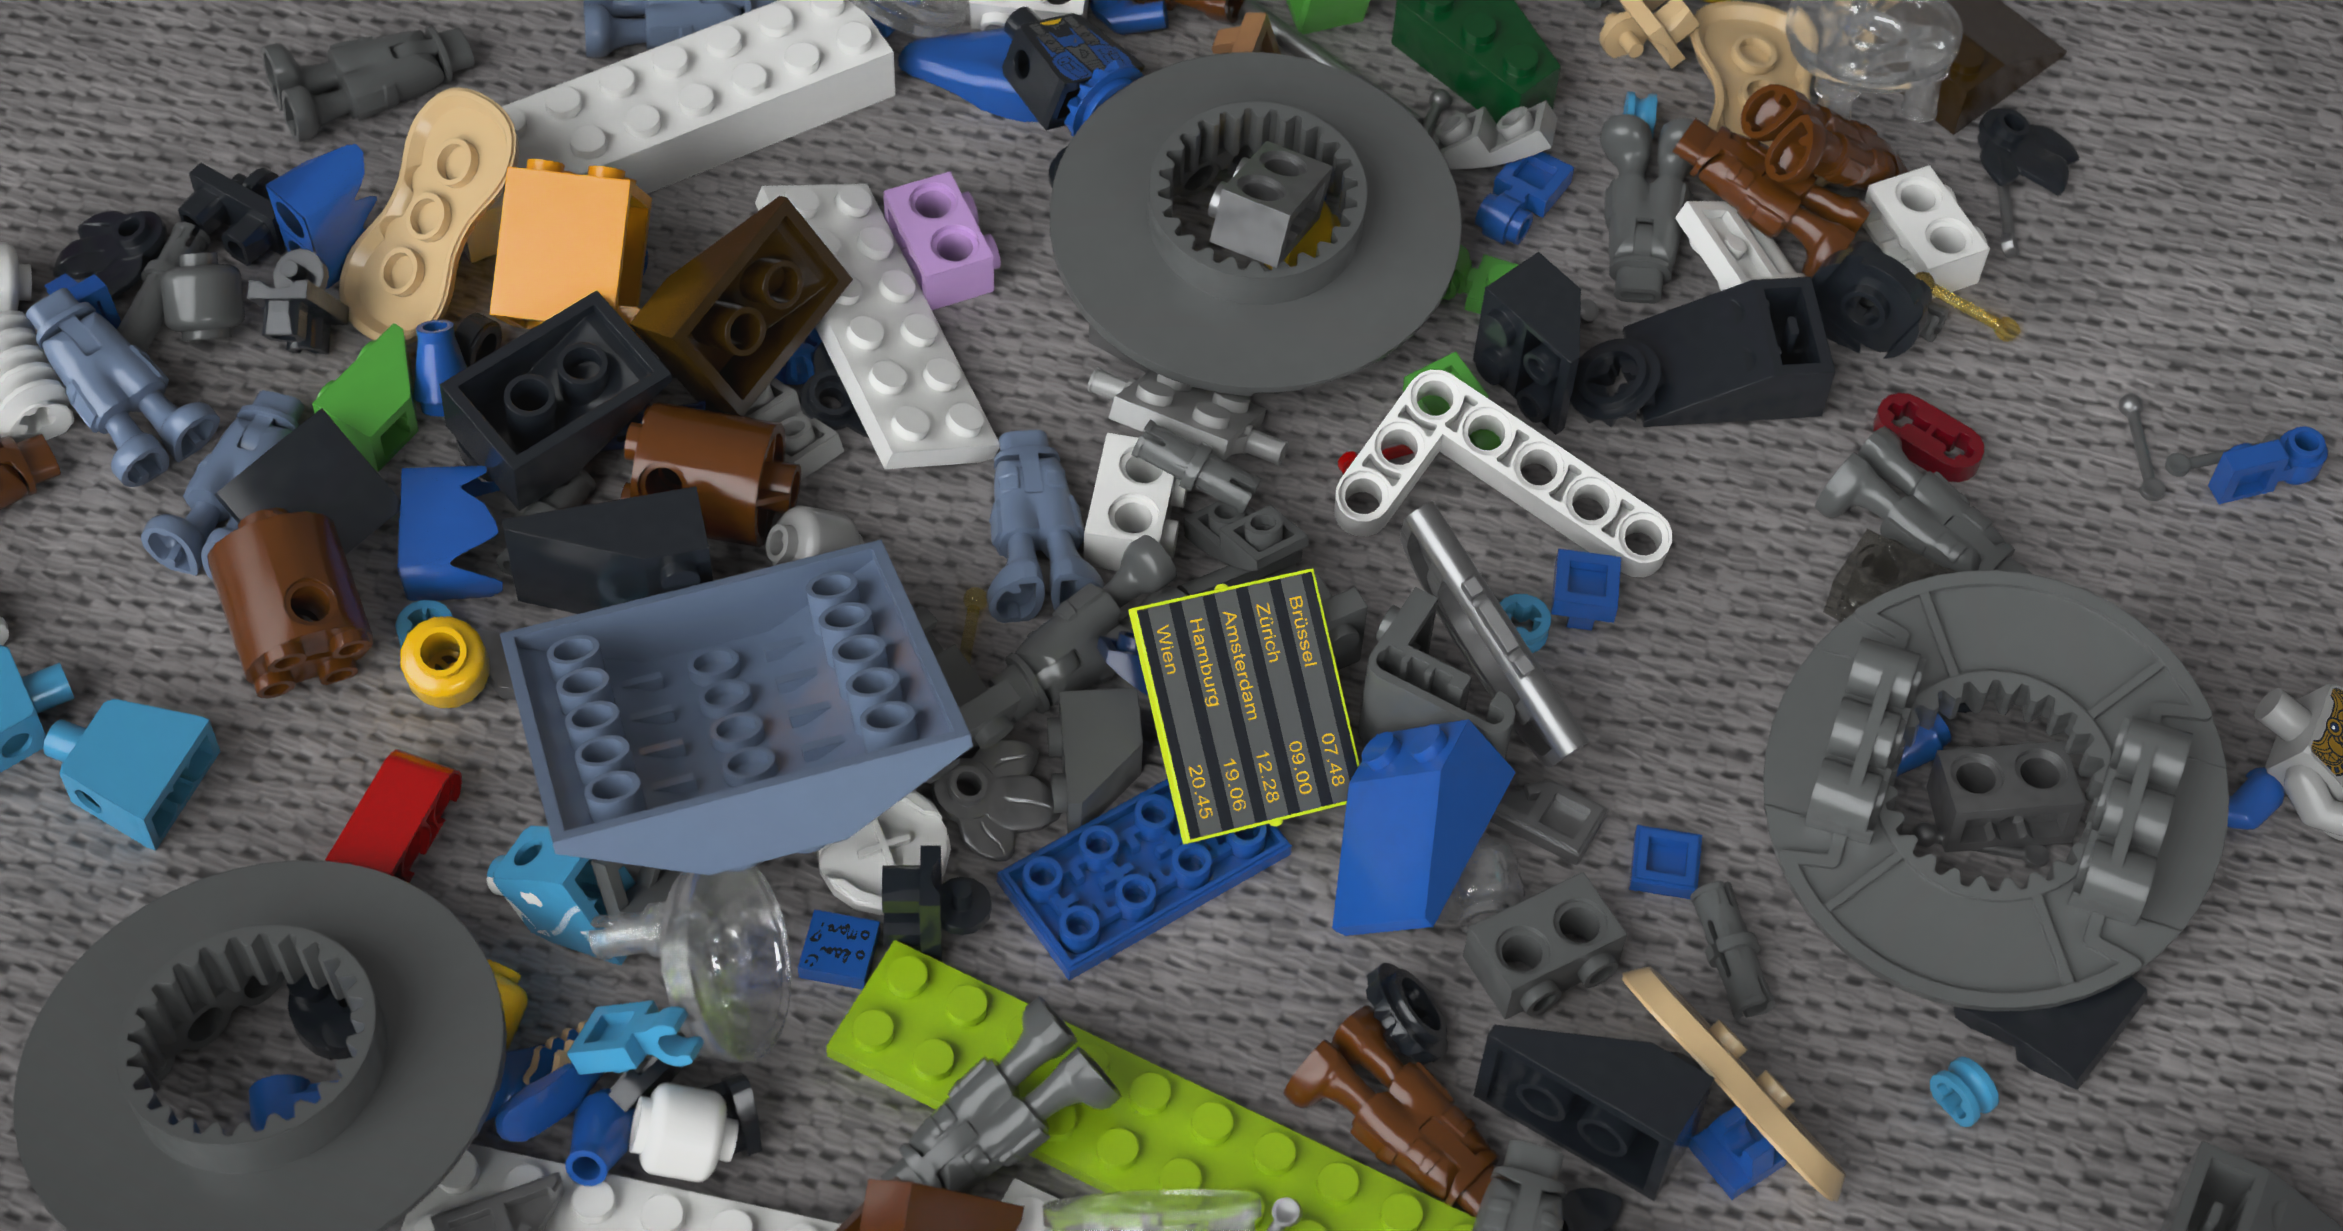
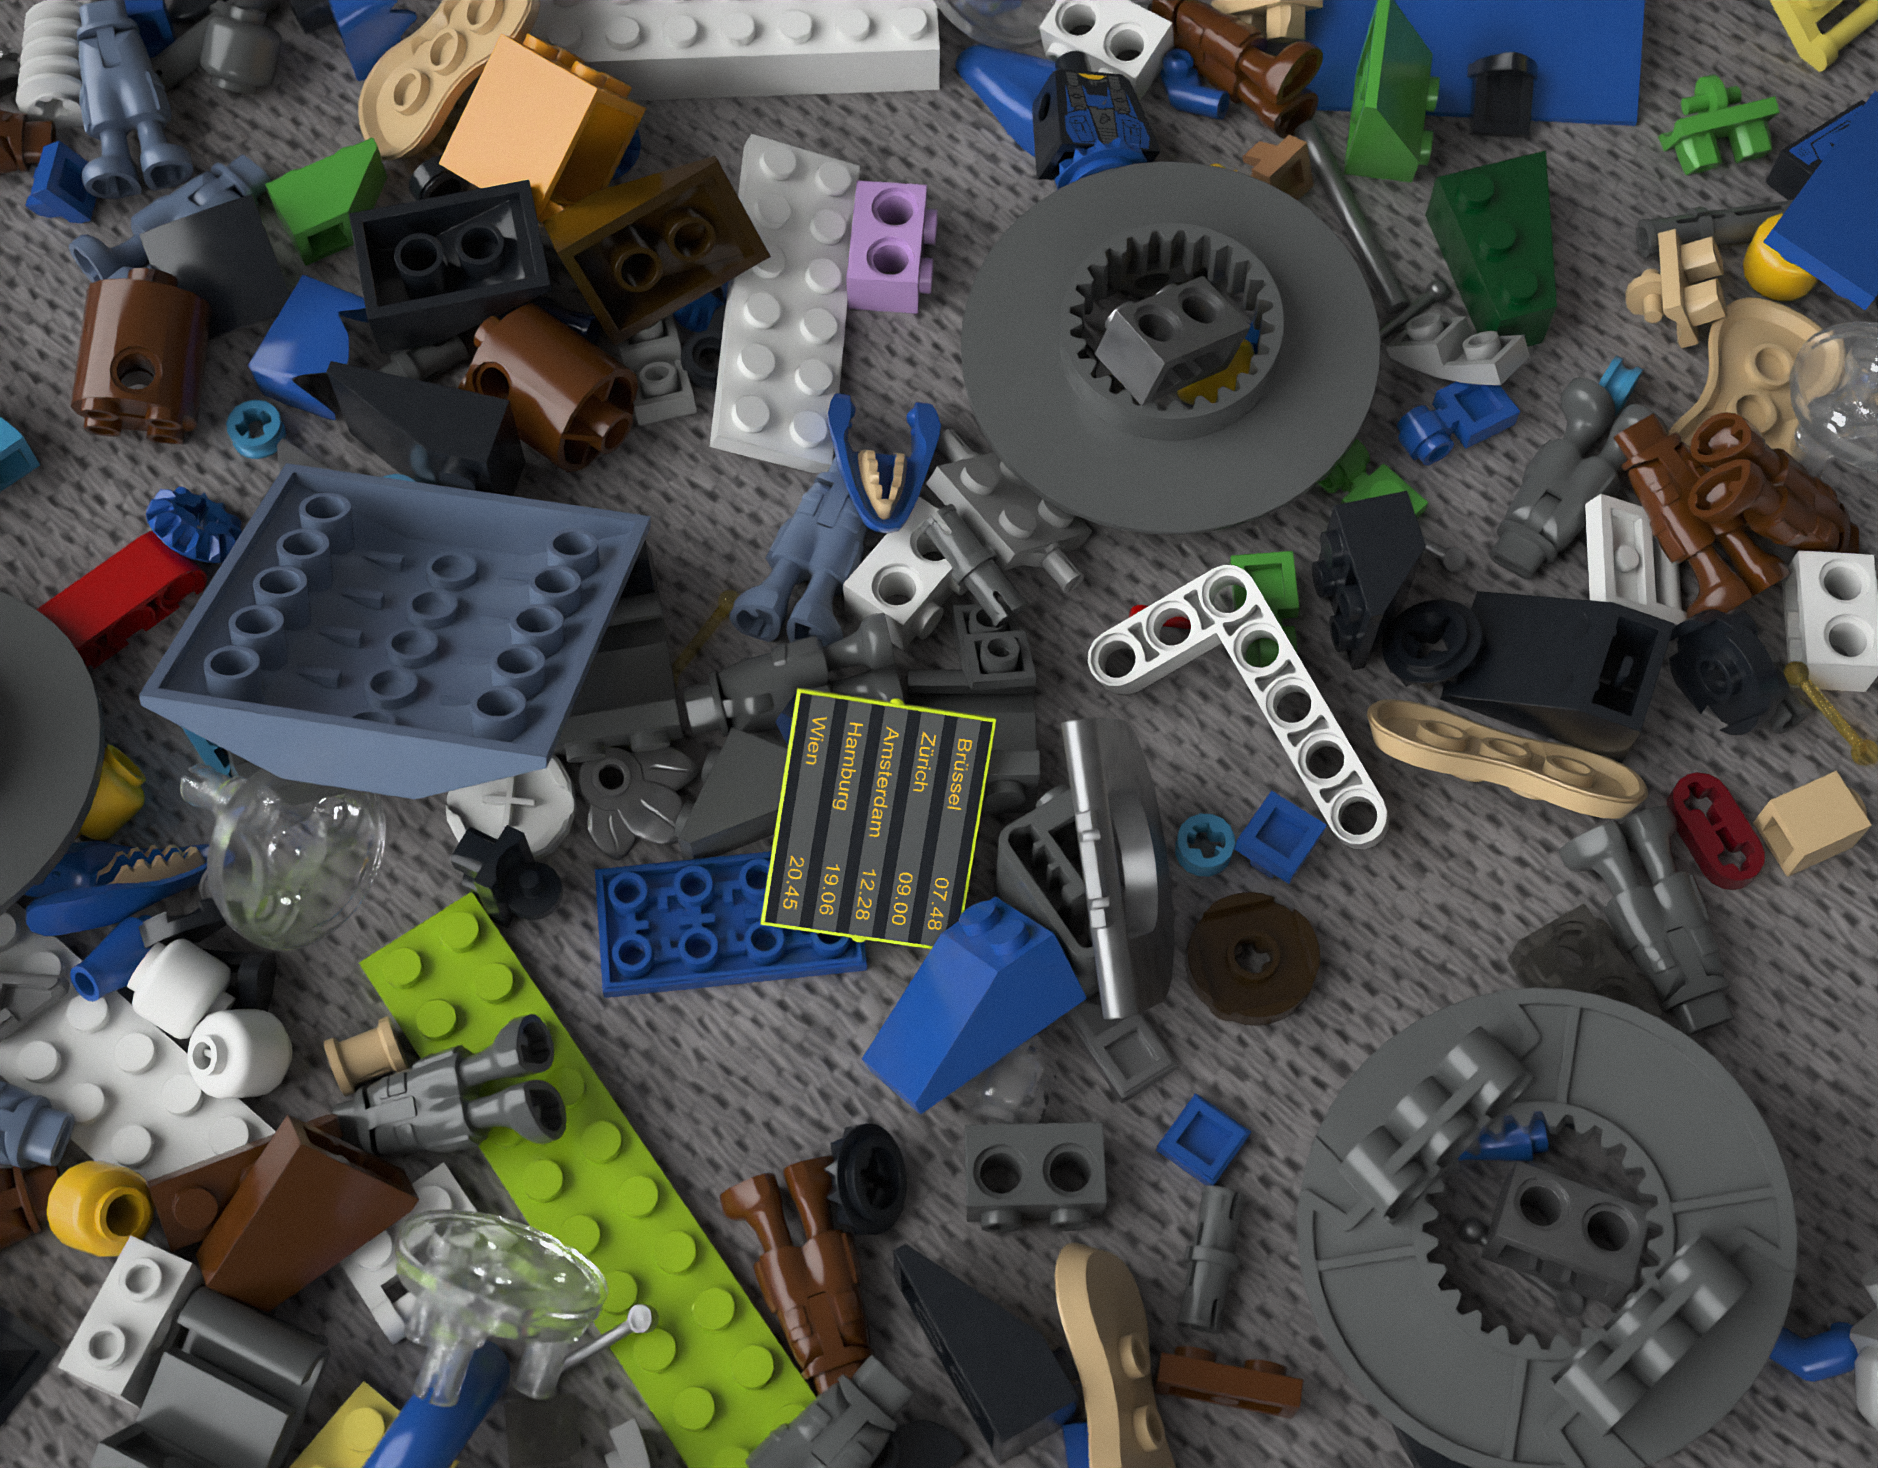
camera: 30 degrees right, 10 degrees up
(90, 488) = (59, 186): none -> blue tile
(298, 306) = (305, 92): black hips -> none
(427, 733) = (175, 521): none -> blue gear
(430, 648) = (239, 465): yellow head -> none
(436, 361) = (391, 179): blue cone -> none
(623, 1035) = (171, 883): dark azure plate -> none
(769, 1166) = (239, 1053): none -> white head
(808, 533) = (608, 484): light grey head -> none
(839, 949) = (422, 877): blue tile -> none
(885, 1120) = (365, 1056): none -> tan bush
(1072, 434) = (881, 484): none -> blue animal
(1640, 669) = (1272, 929): none -> dark brown plate
(1757, 444) = (1525, 765): none -> tan plate
(1811, 1039) = (1256, 1388): none -> reddish brown plate
(2003, 396) = (1812, 823): none -> tan brick

